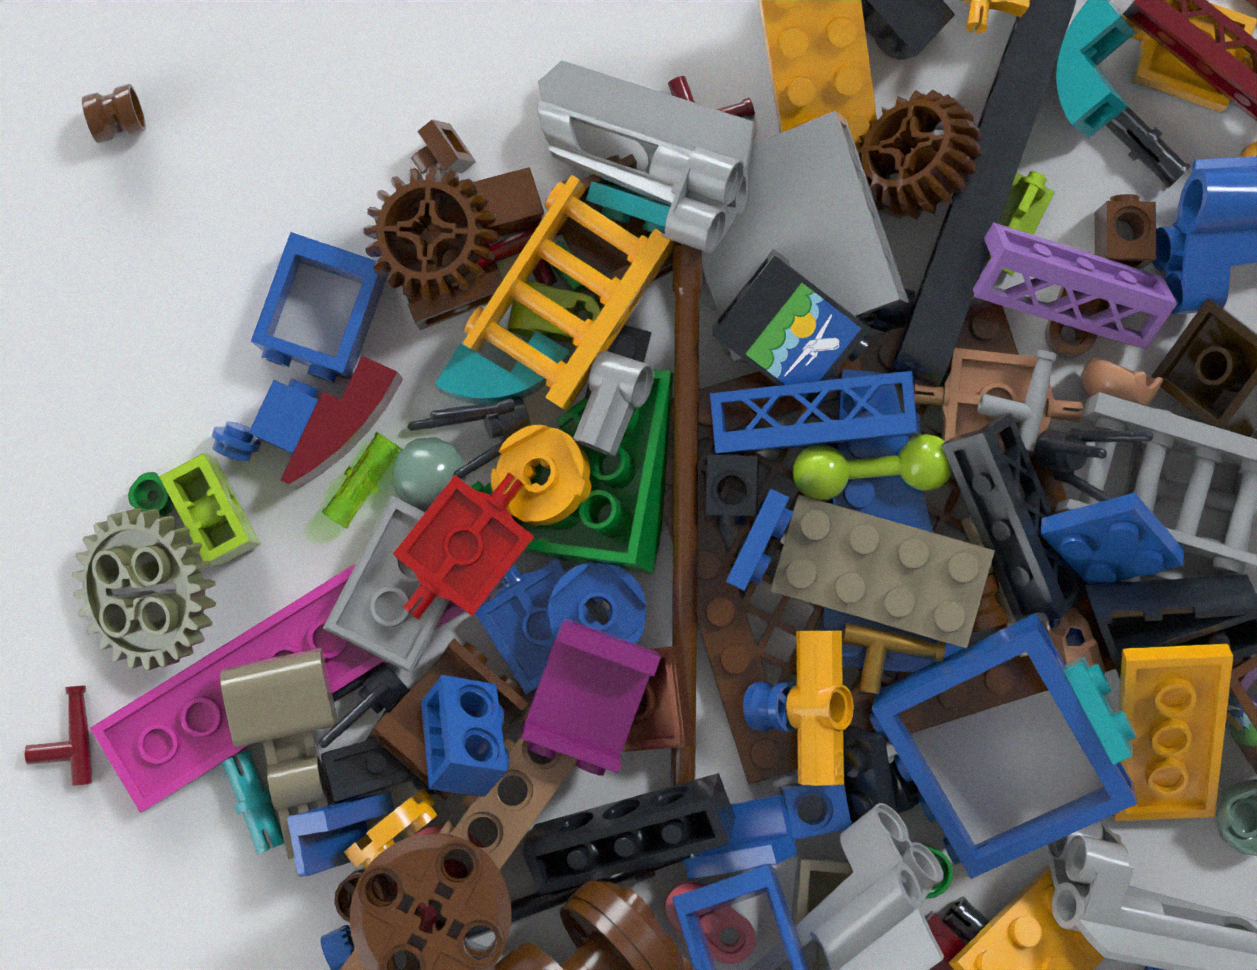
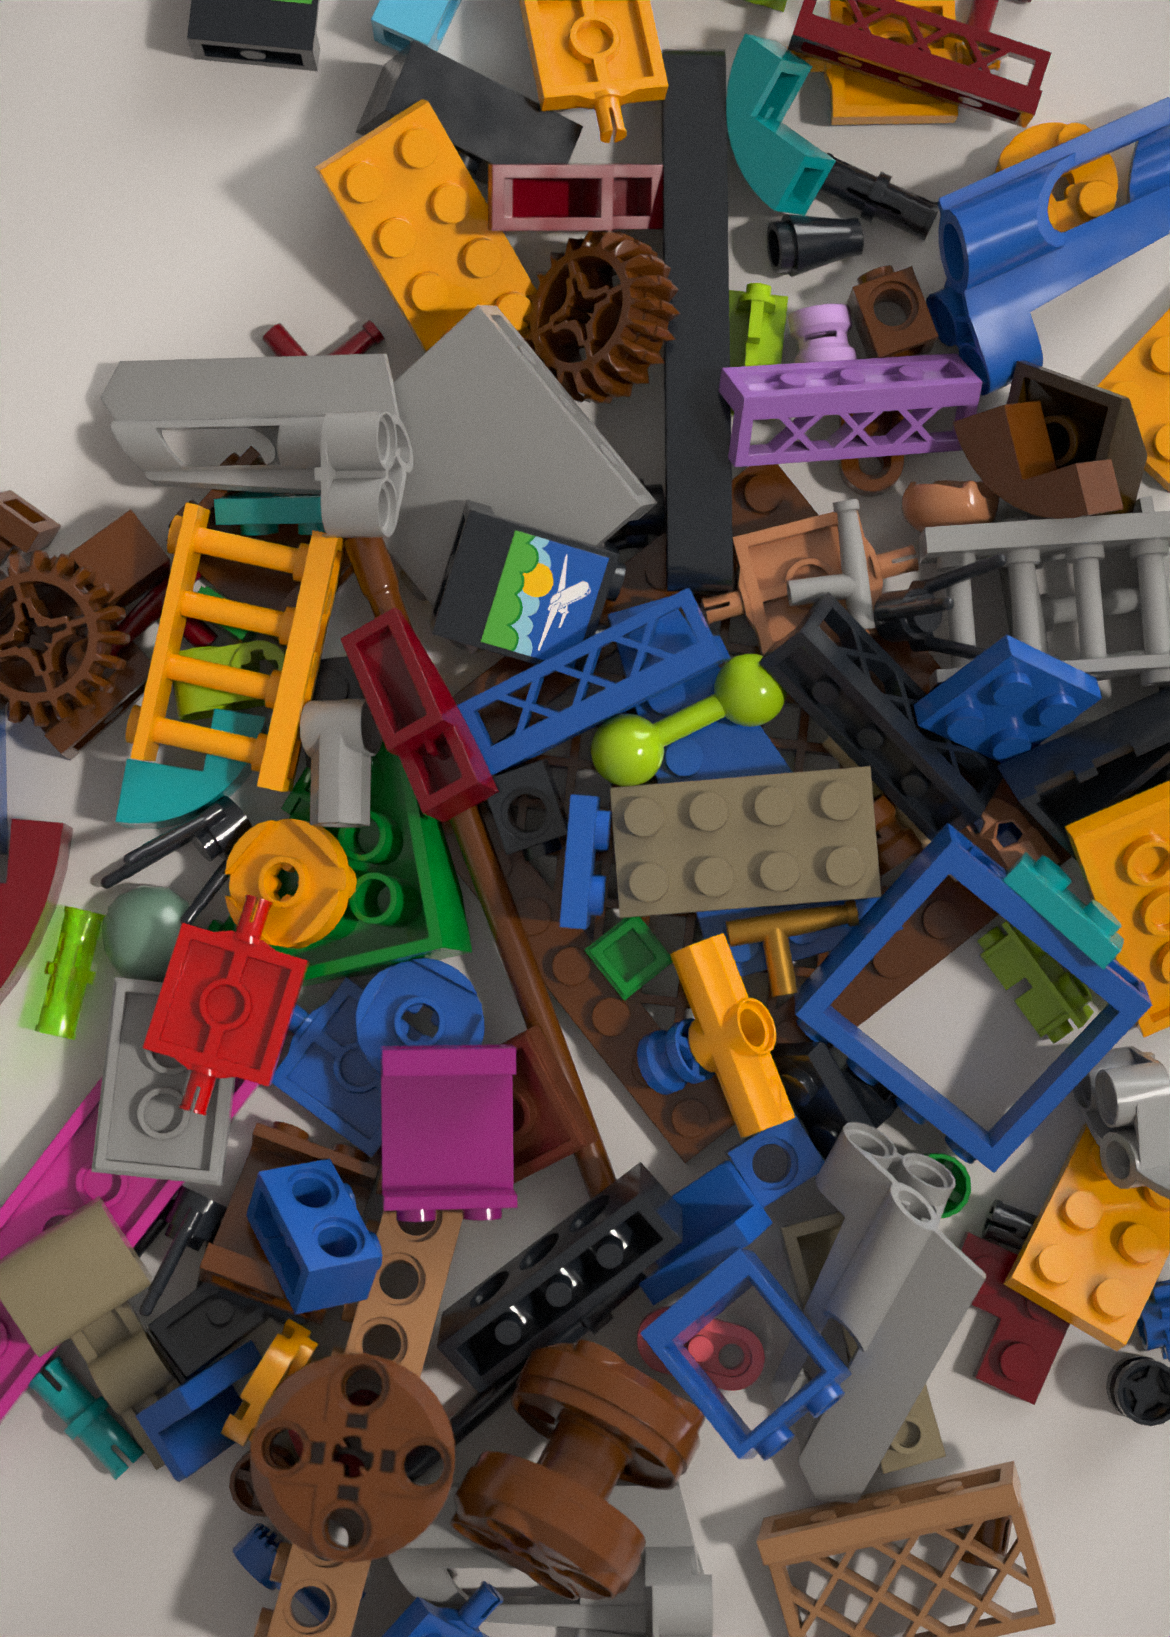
camera: 25 degrees left, 0 degrees up
(680, 391) = (418, 717): none -> dark red slope
(764, 620) = (629, 956): none -> green tile
(931, 61) = (575, 196): none -> dark red slope
(1060, 765) = (1053, 994): none -> lime hinge
(1071, 225) = (822, 333): none -> lavender wheel
(1084, 158) = (810, 242): none -> black cone
(1181, 368) = (1016, 461): none -> reddish brown brick

